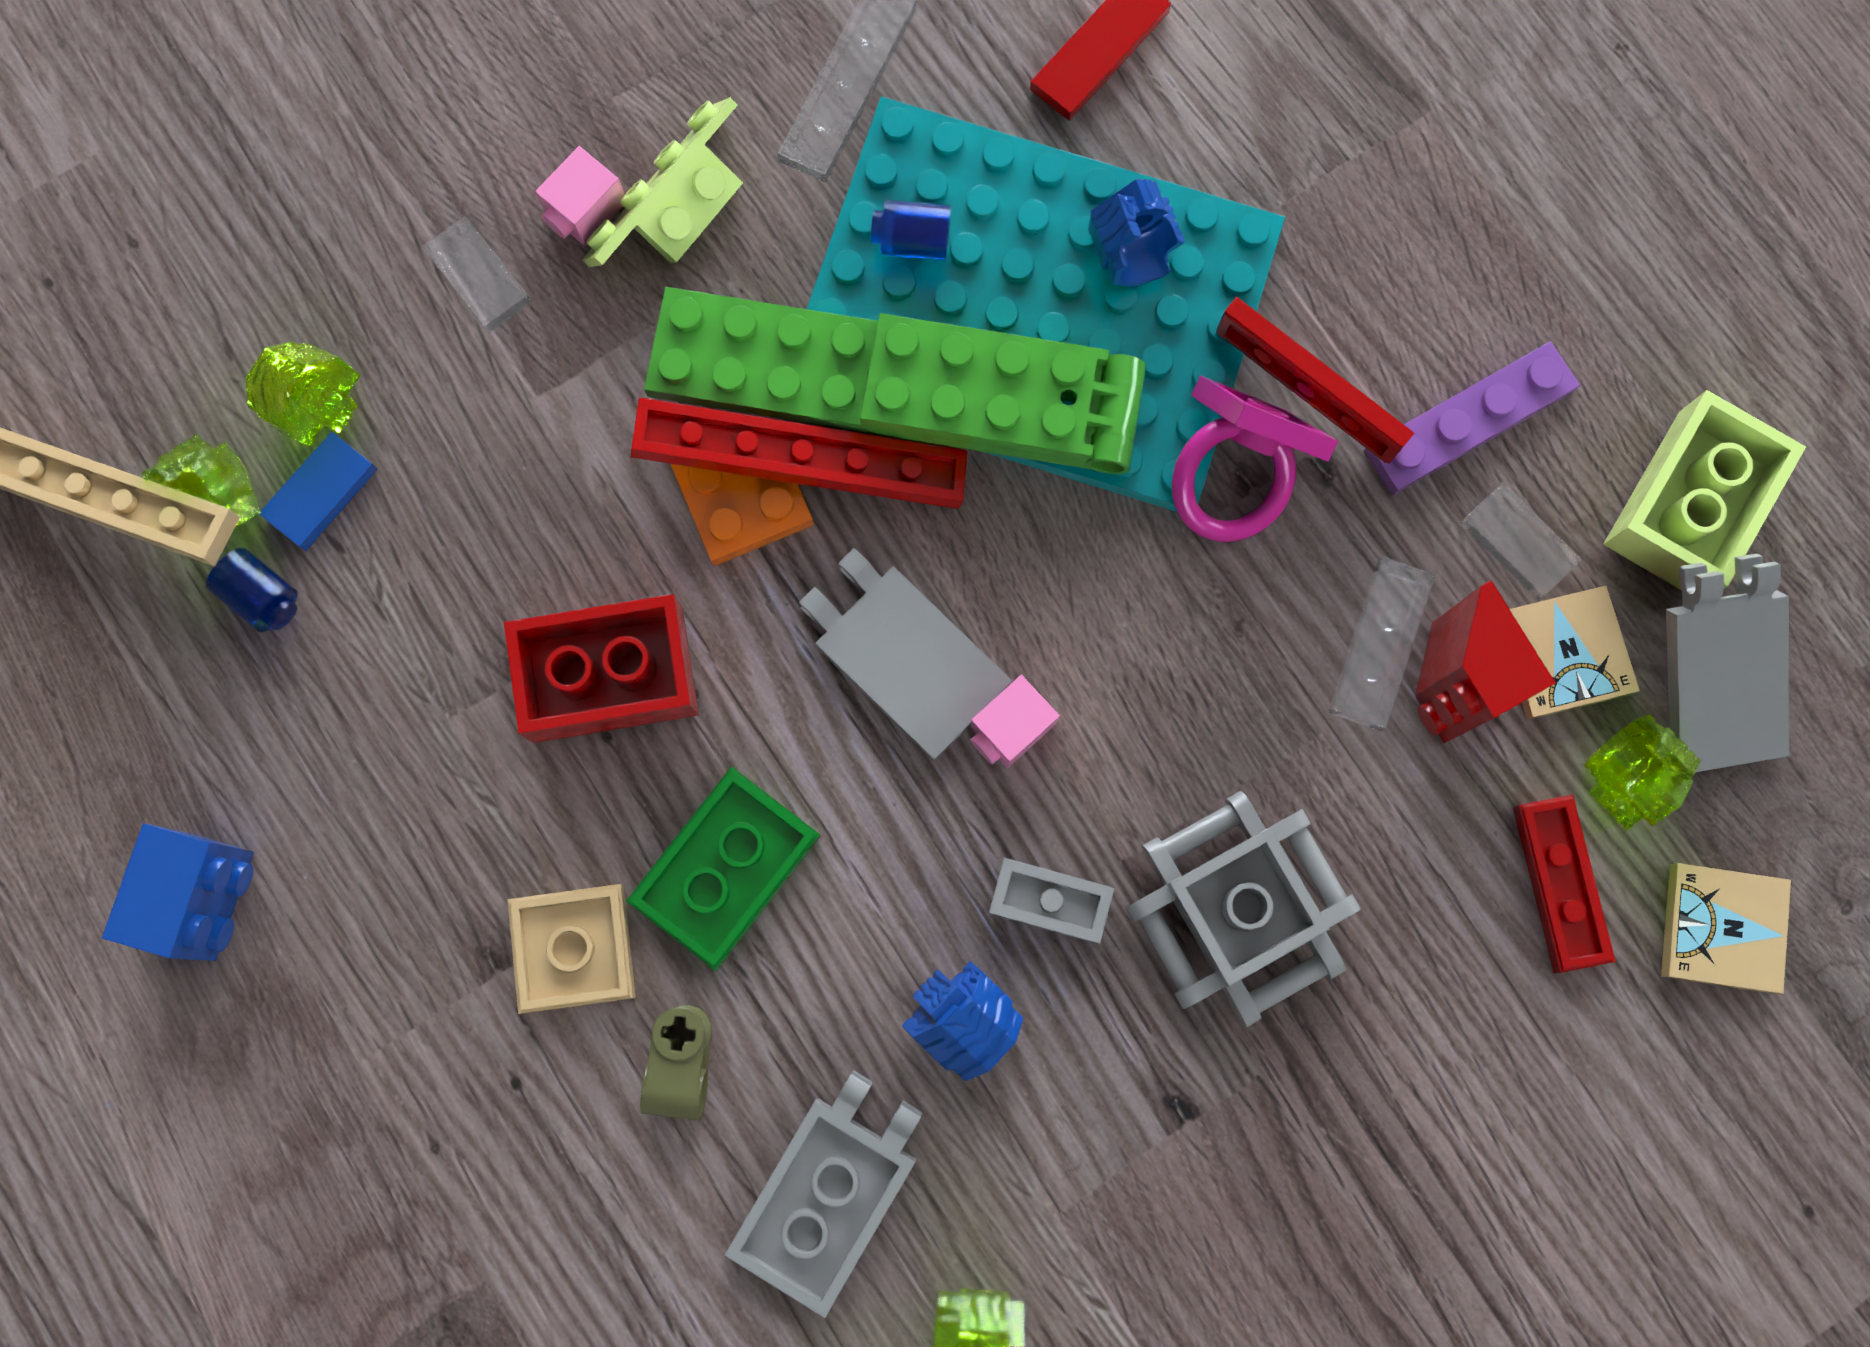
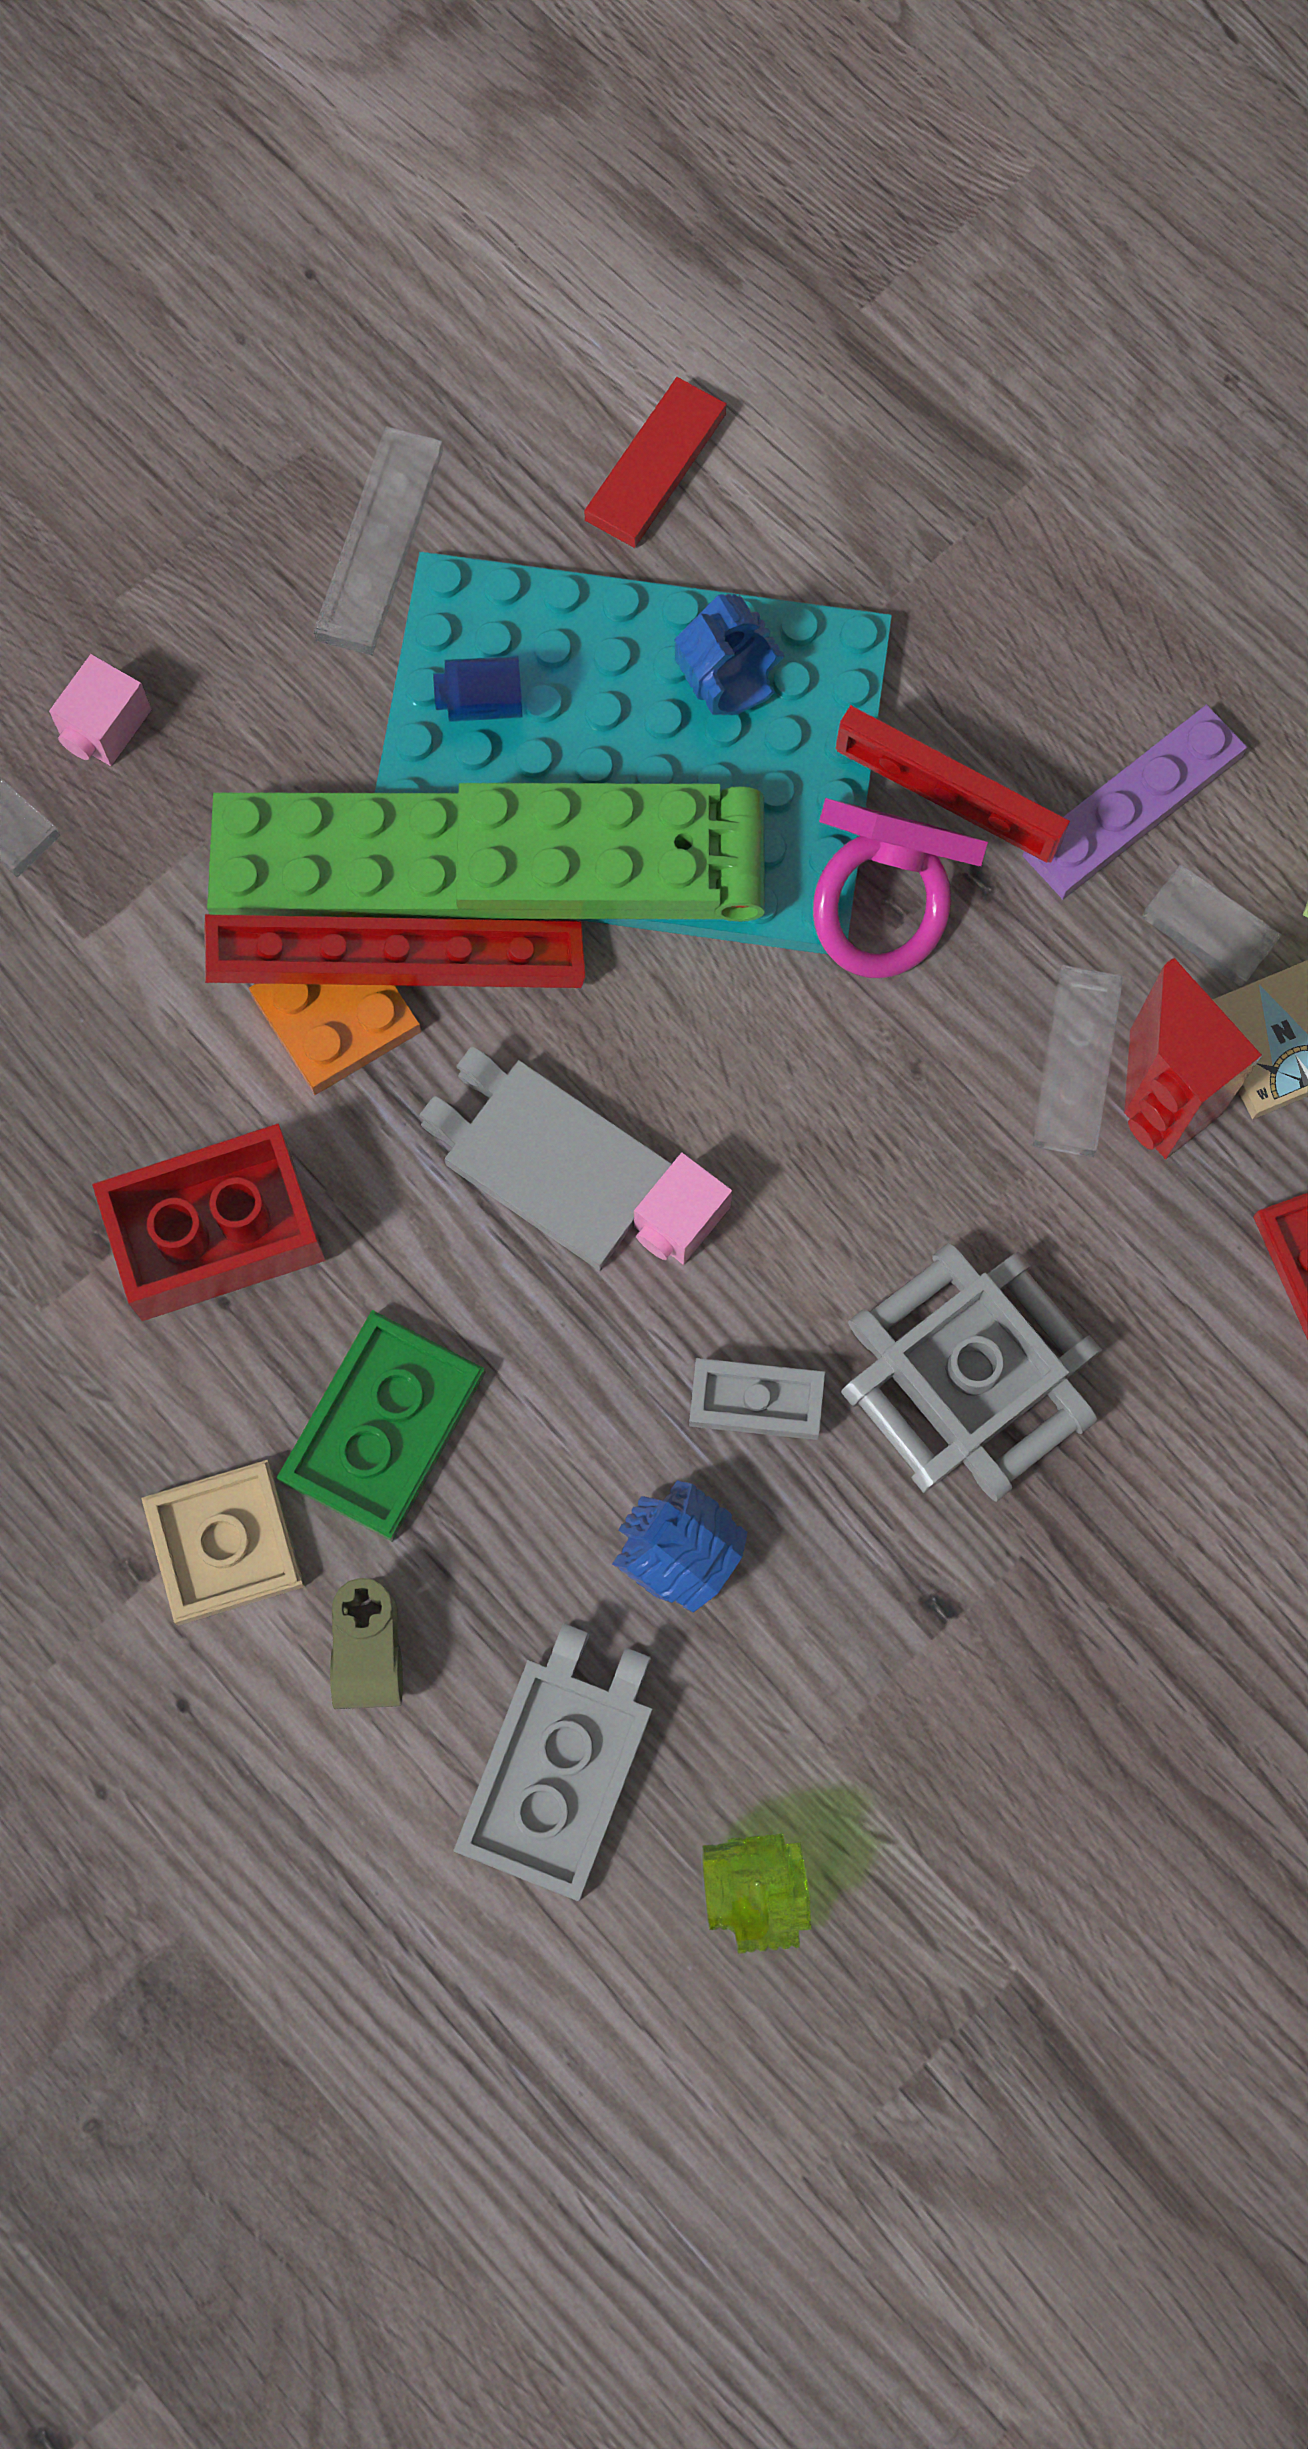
camera: 10 degrees left, 5 degrees down
(679, 196) = (210, 696): yellowish green bracket -> none

